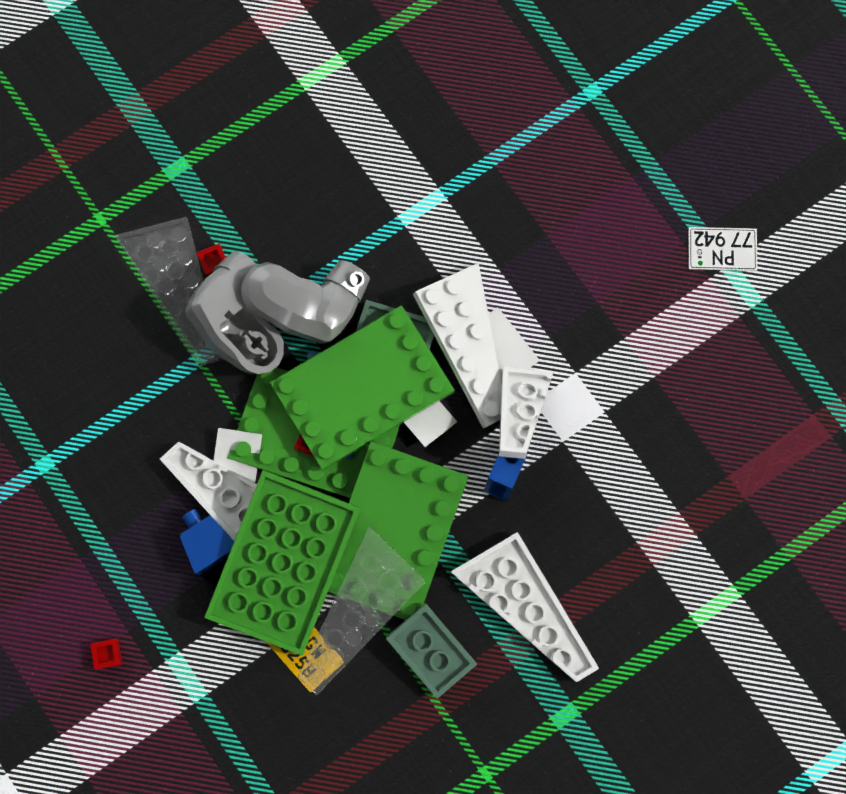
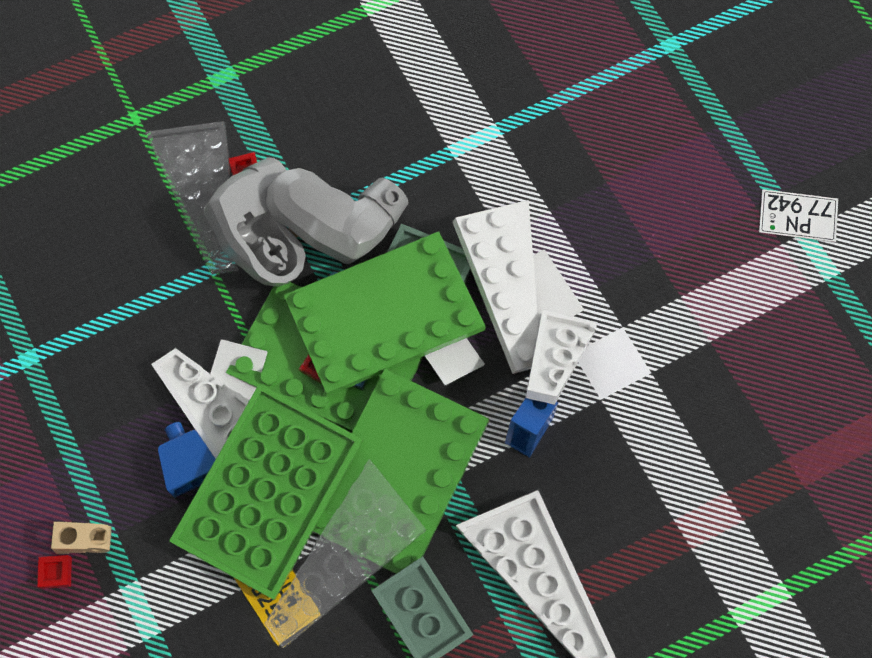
camera: 10 degrees right, 10 degrees down
(125, 622) = (80, 538): none -> tan leg

